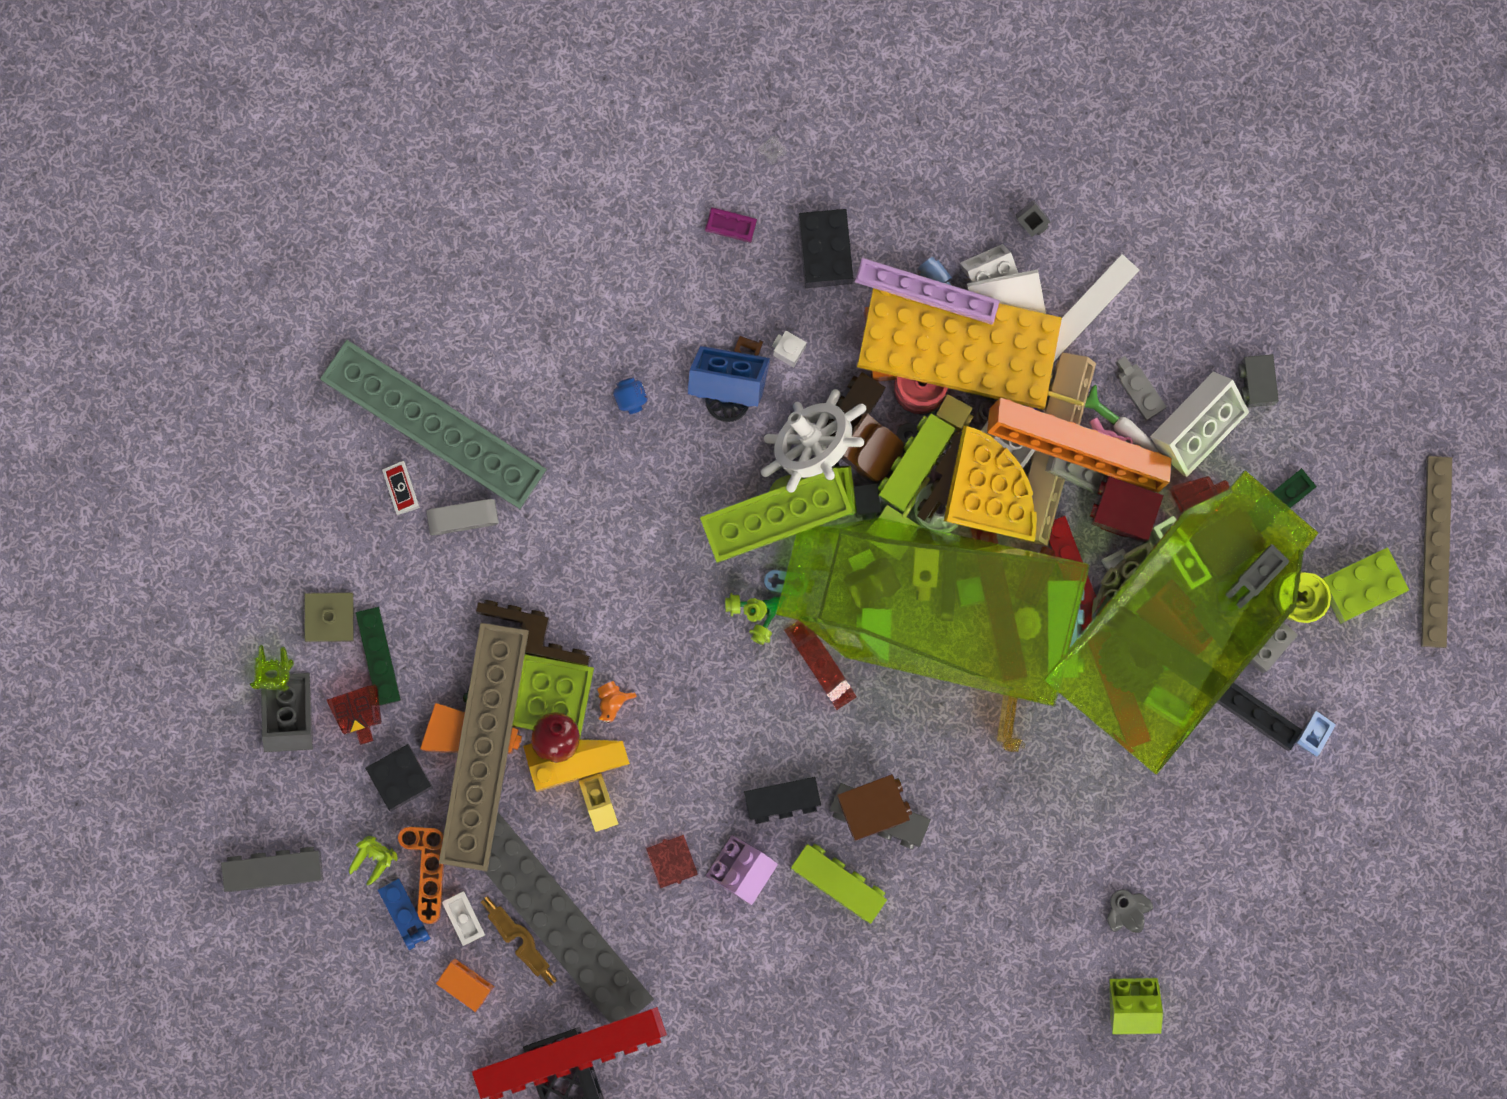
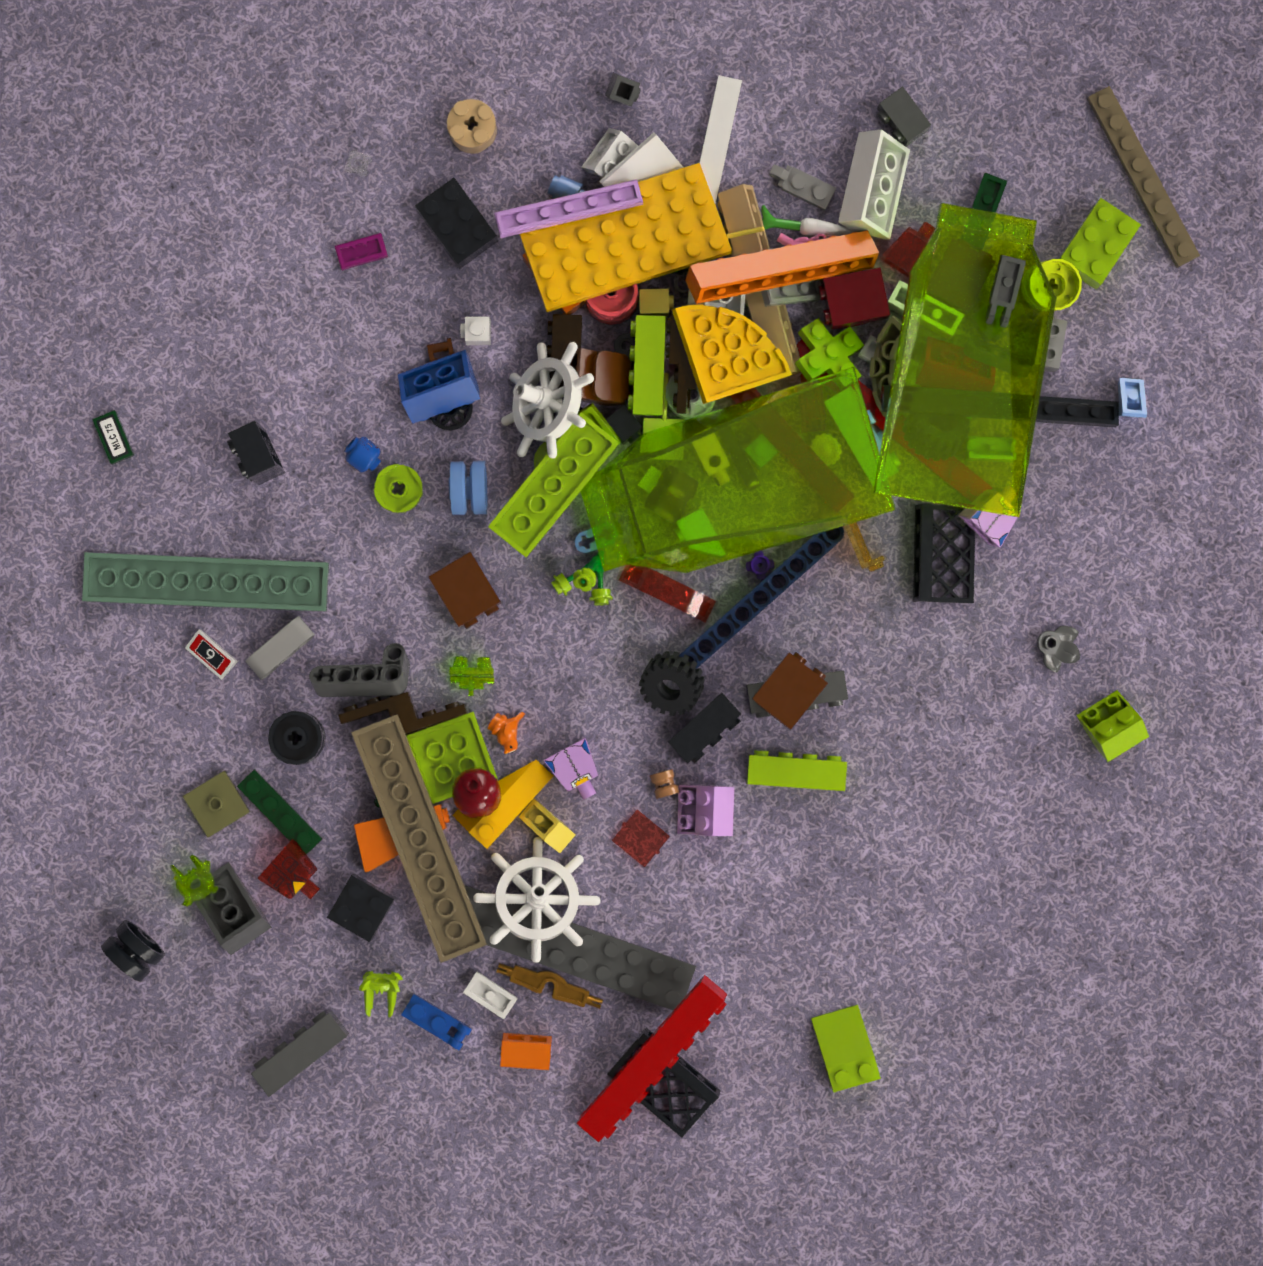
camera: 30 degrees left, 5 degrees up
(180, 699) = (132, 950): none -> black wheel
(425, 875) = (435, 977): orange beam -> none
(427, 587) = (282, 738): none -> black wheel
(428, 258) = (113, 437): none -> tile
(517, 585) = (354, 679): none -> dark grey beam
(541, 341) = (256, 453): none -> black brick
(552, 859) = (536, 899): none -> white piece
(609, 637) = (471, 677): none -> clear neon green hips
(648, 561) = (465, 591): none -> reddish brown brick
(651, 767) = (574, 768): none -> lavender torso
(652, 431) = (395, 502): none -> lime plate
(701, 475) = (468, 488): none -> medium blue wheel
(720, 820) = (664, 778): none -> medium nougat wheel
(790, 738) = (676, 670): none -> black tyre
(883, 162) = (462, 116): none -> tan brick
(885, 723) = (771, 594): none -> dark blue beam
(919, 691) = (766, 565): none -> dark purple plate
(1058, 762) = (924, 555): none -> black fence
(1076, 540) = (827, 352): none -> lime plate
(1128, 770) = (989, 526): none -> lavender torso

